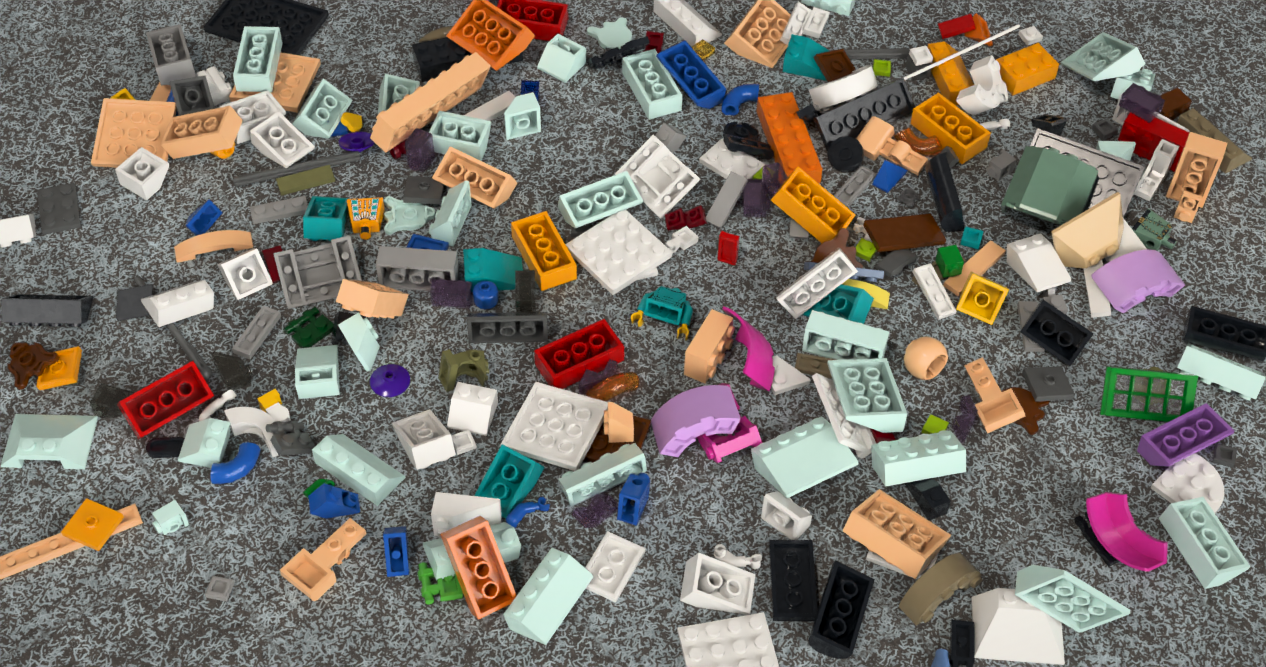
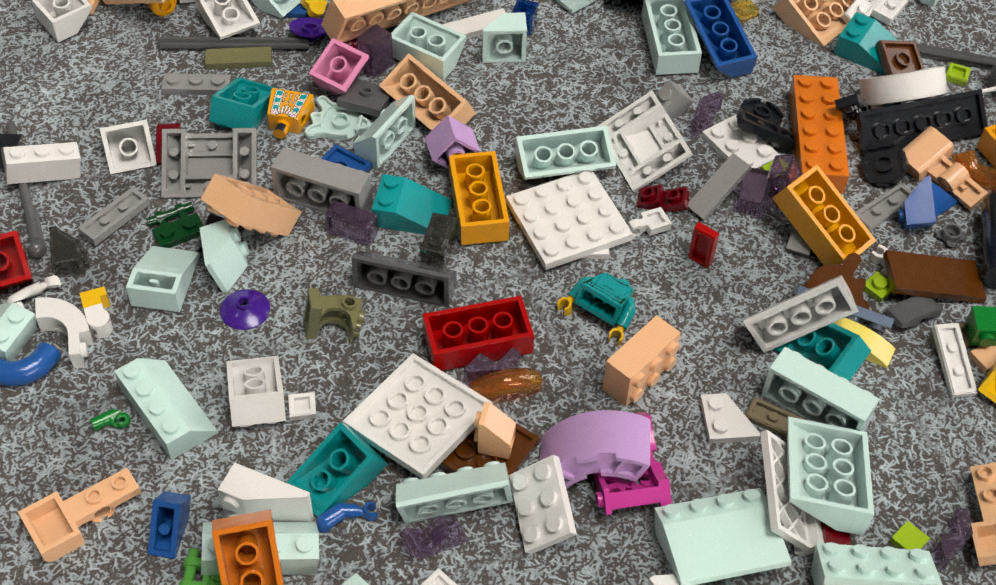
camera: 15 degrees right, 0 degrees up
(203, 218) = (109, 75): blue slope -> none
(211, 242) = (109, 102): light nougat slope -> none
(290, 443) = (94, 356): dark grey plate -> none
(333, 502) = (118, 442): blue slope -> none
(396, 170) = (337, 67): none -> bright pink slope
(472, 408) = (326, 367): white slope -> none
(485, 295) = (391, 233): blue head -> none
(507, 209) = (449, 139): none -> lavender head
(636, 489) = (484, 533): blue torso -> none
(670, 467) = (542, 504): none -> white plate
(697, 143) = (705, 112): none -> clear purple slope
(739, 95) = (771, 70): blue cylinder -> none
(759, 357) = (700, 388): dark pink panel -> none
(880, 182) = (918, 208): none -> slope
(925, 358) = (920, 444): light nougat wheel -> none

